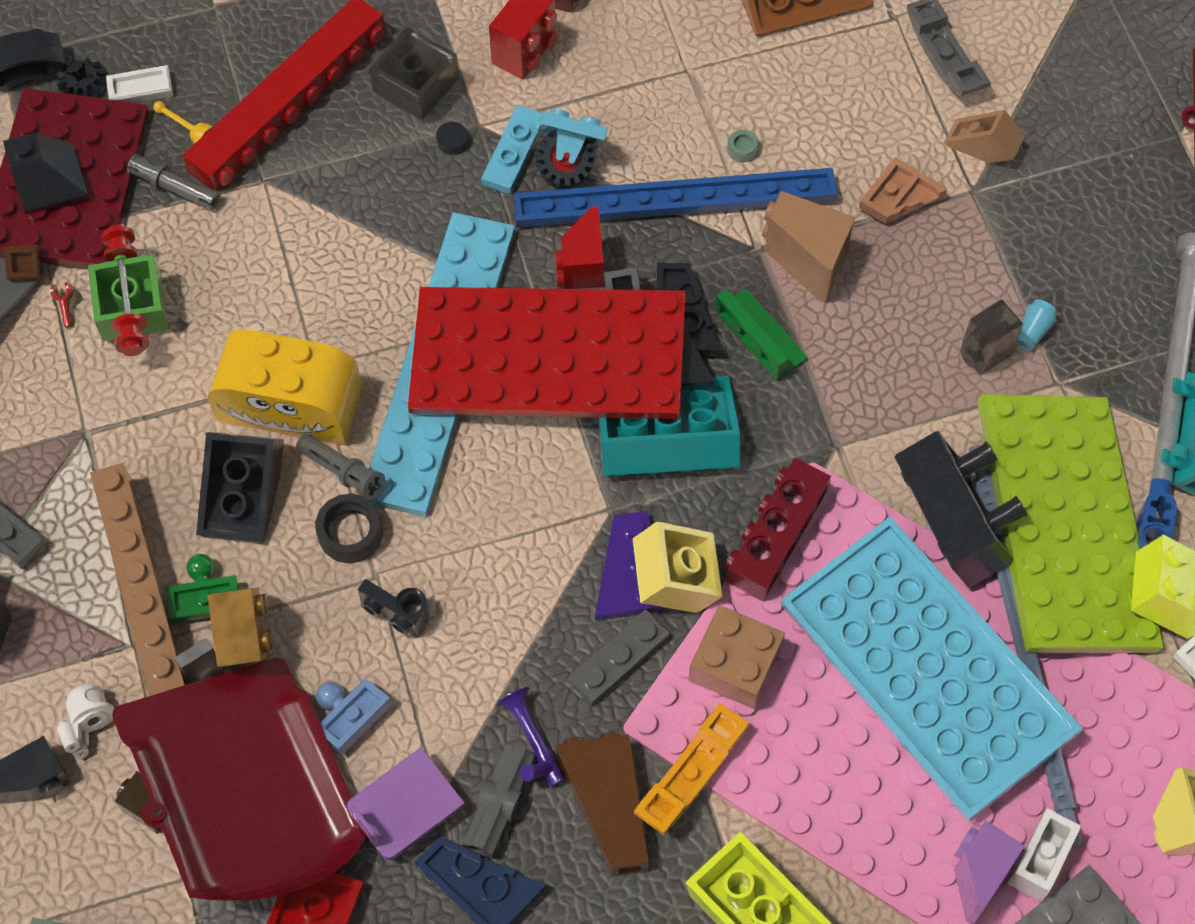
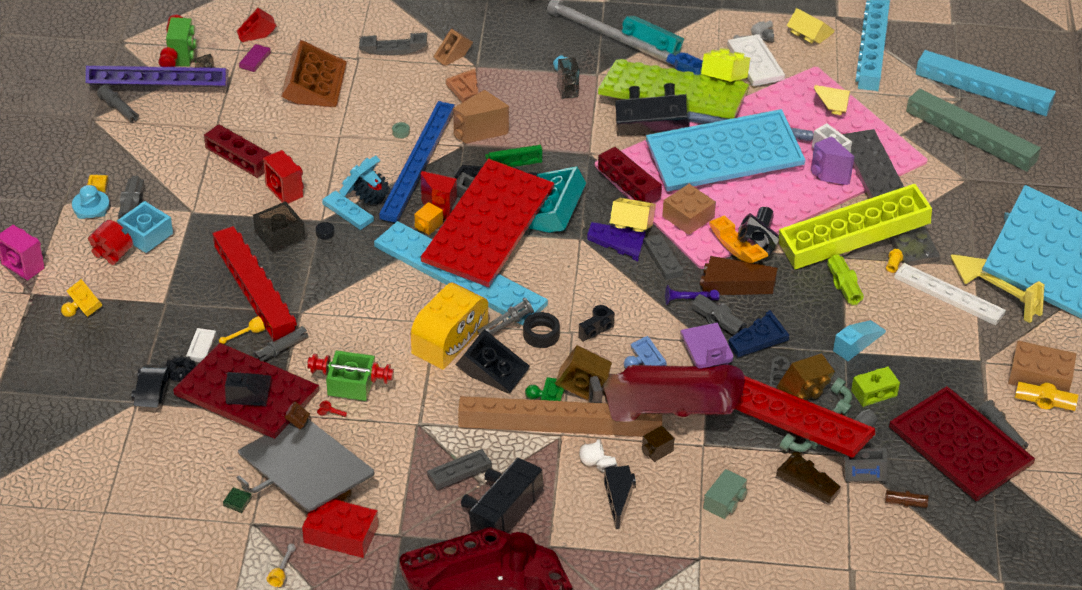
camera: 70 degrees left, 20 degrees down
(534, 265) = (428, 218): none -> light orange brick
(739, 799) = (759, 229): none -> black connector

